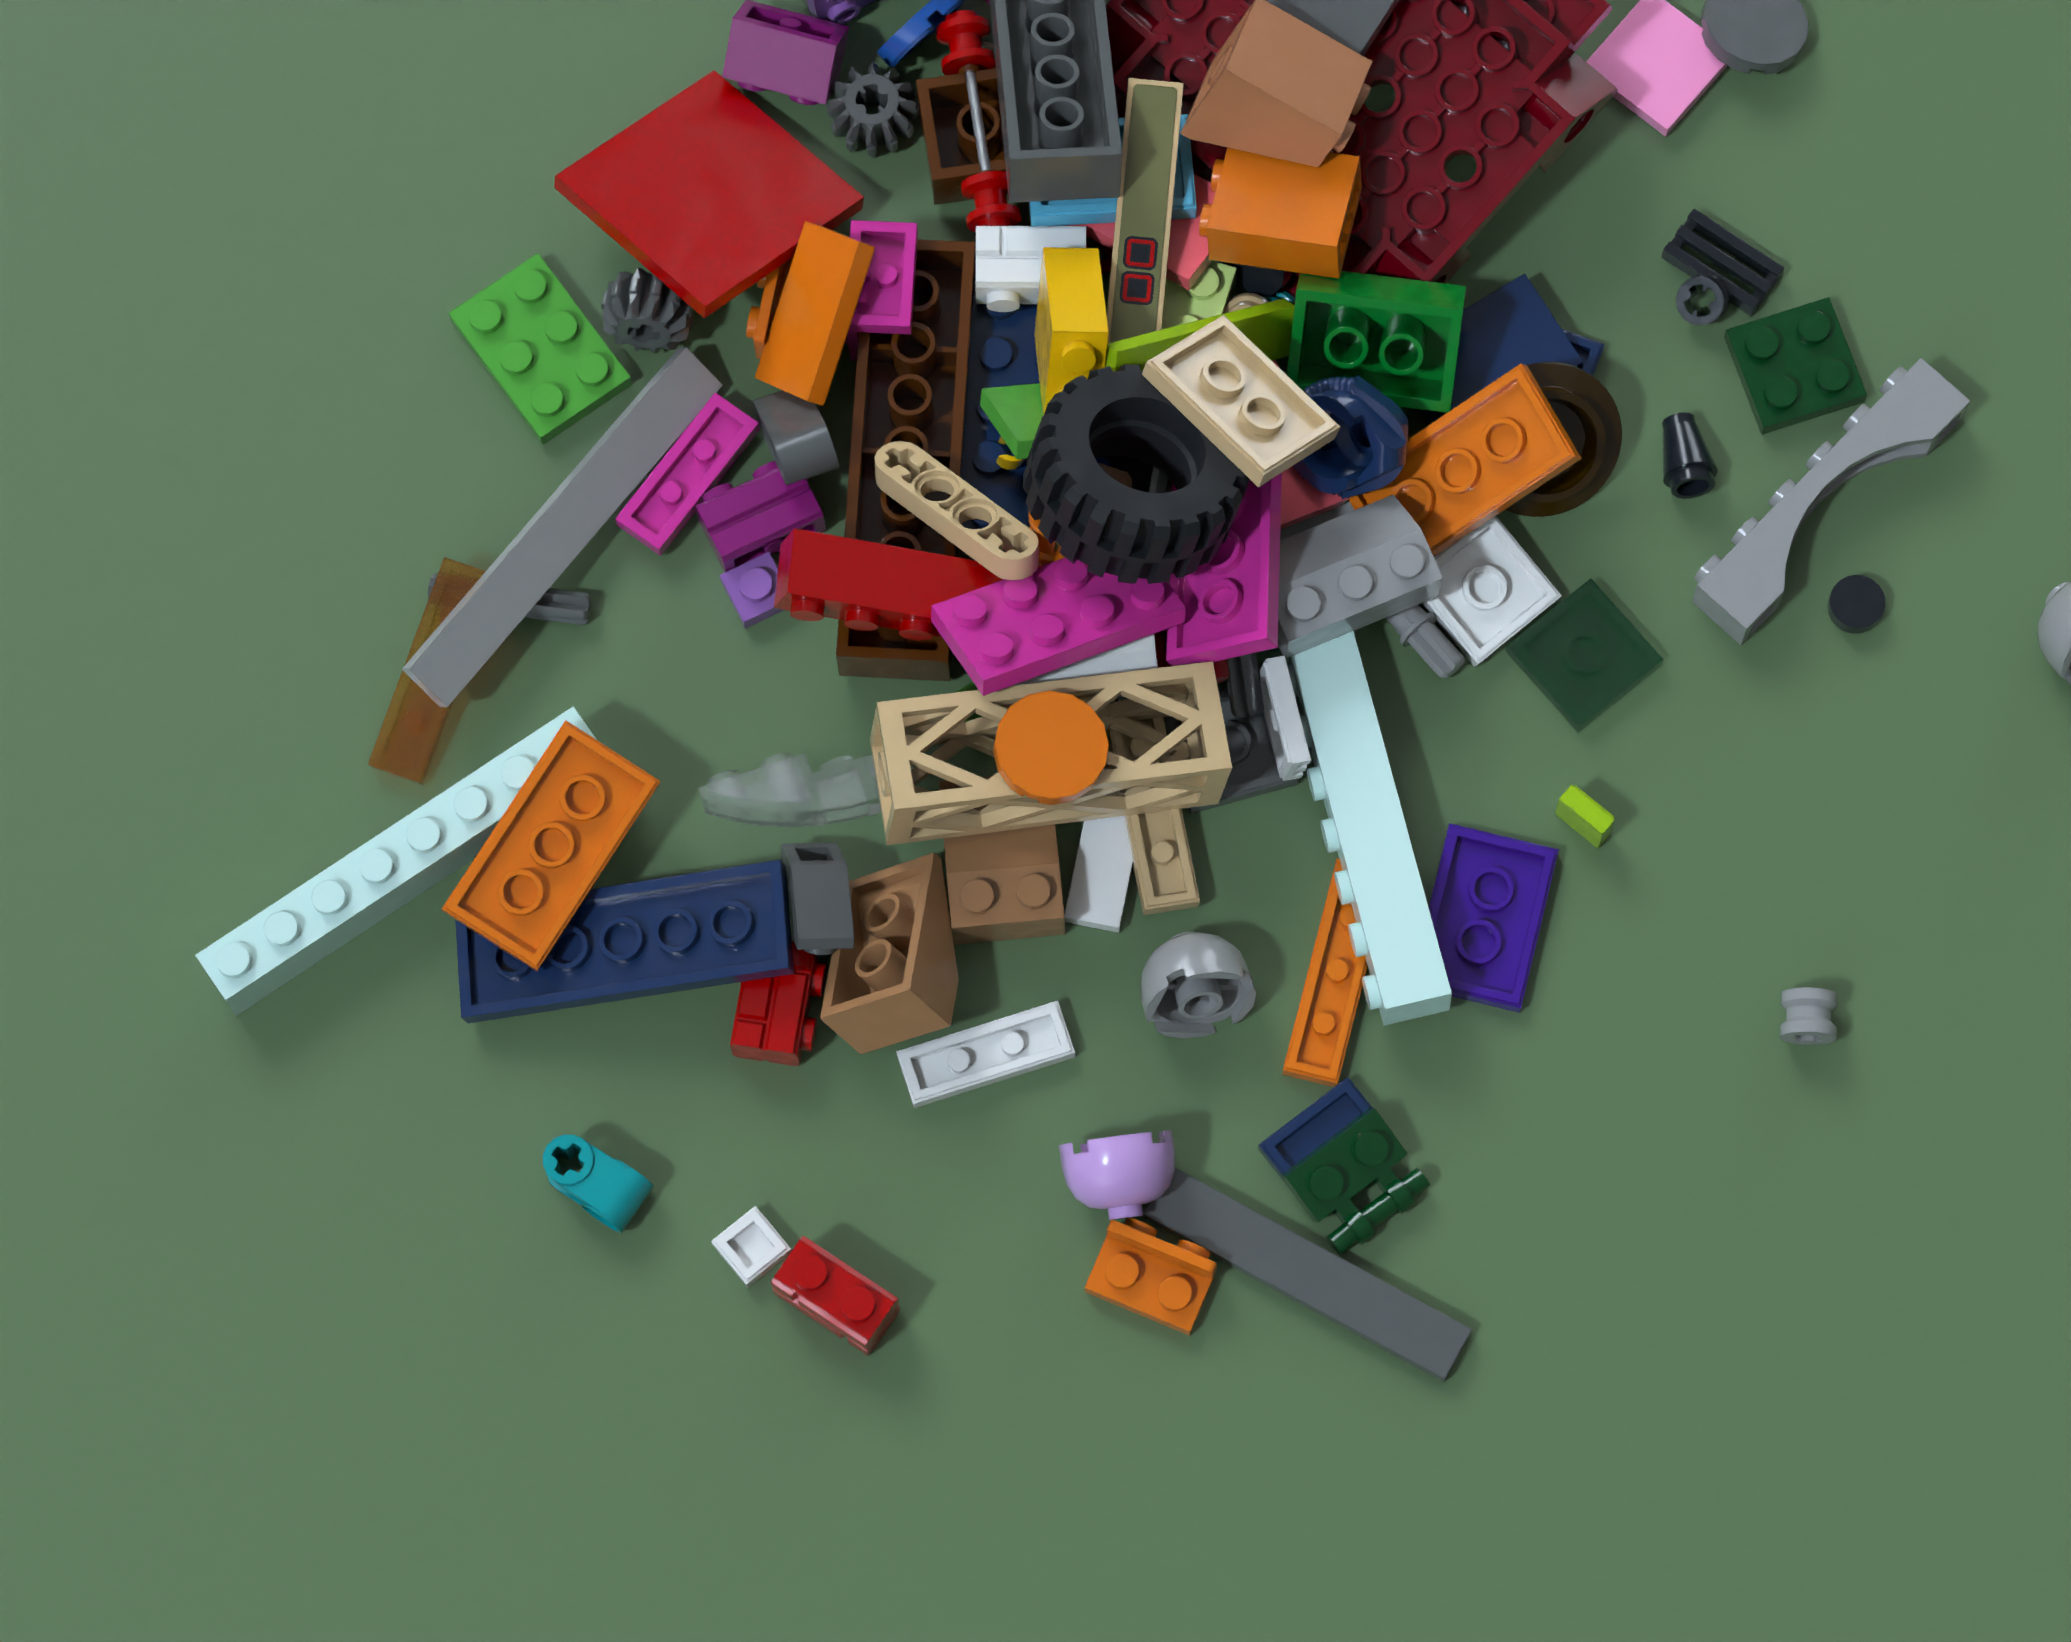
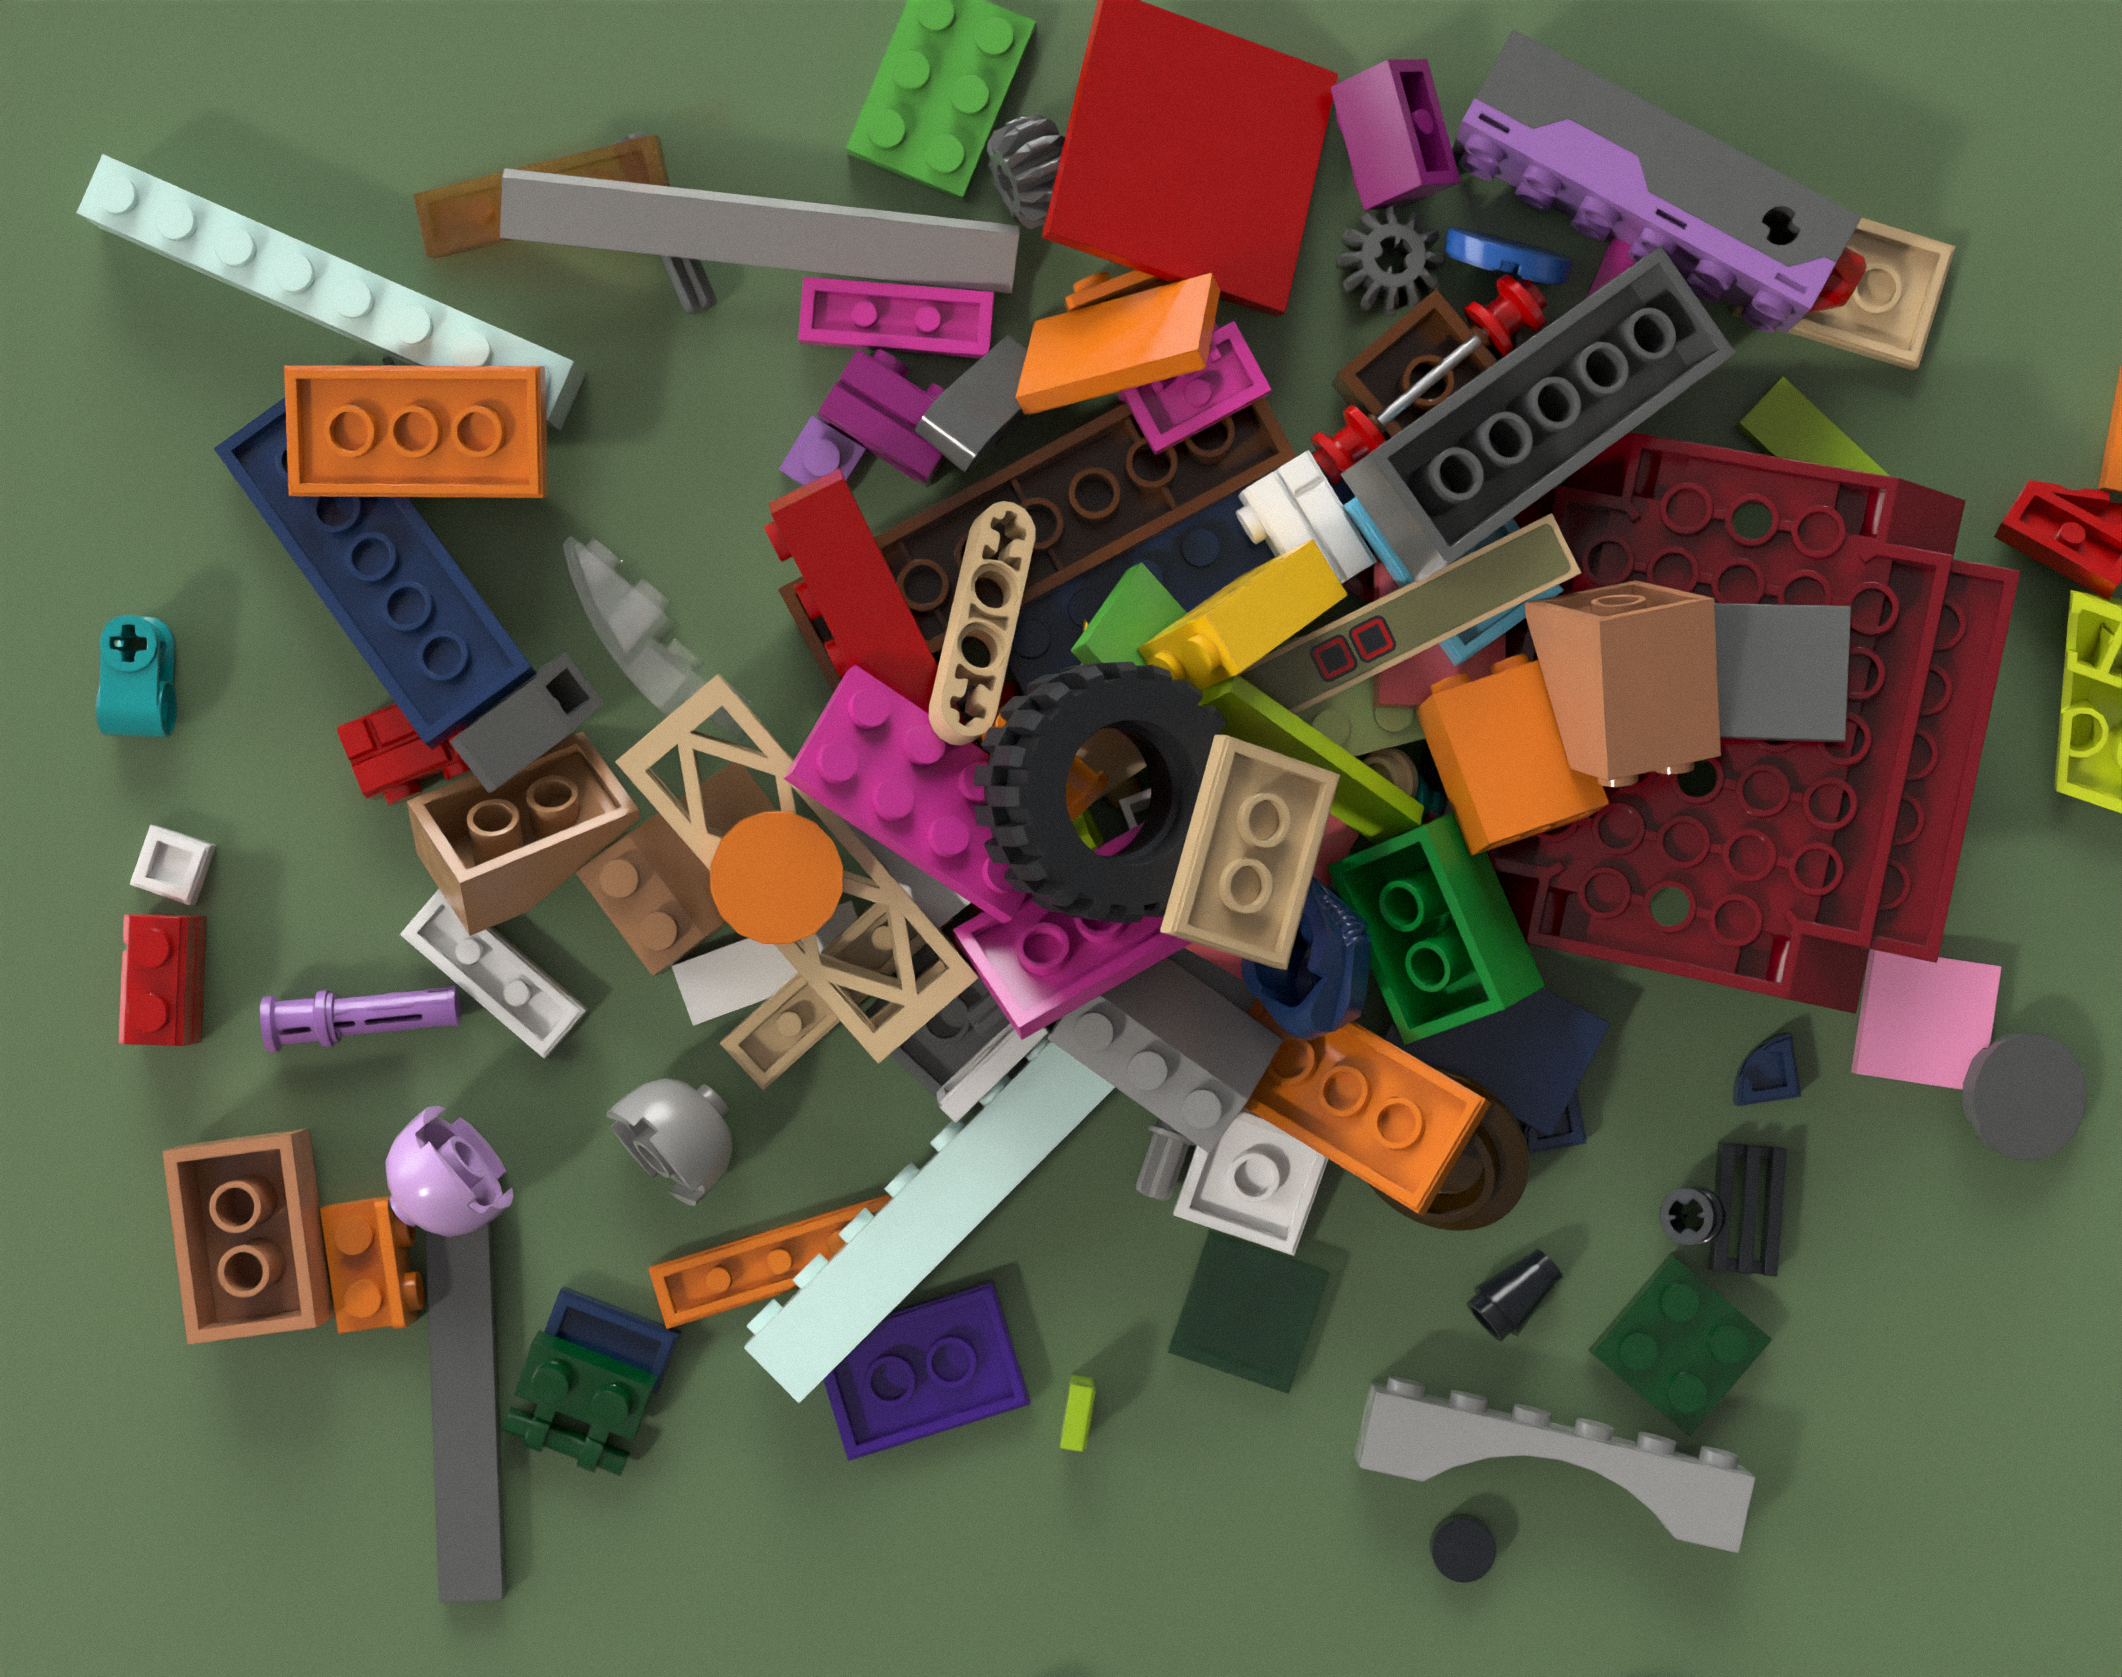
camera: 55 degrees right, 15 degrees up
(944, 1193) = (330, 1017): none -> medium lavender pin
(1072, 1342) = (248, 1236): none -> nougat brick
(1630, 191) = (1768, 1073): none -> dark blue tile

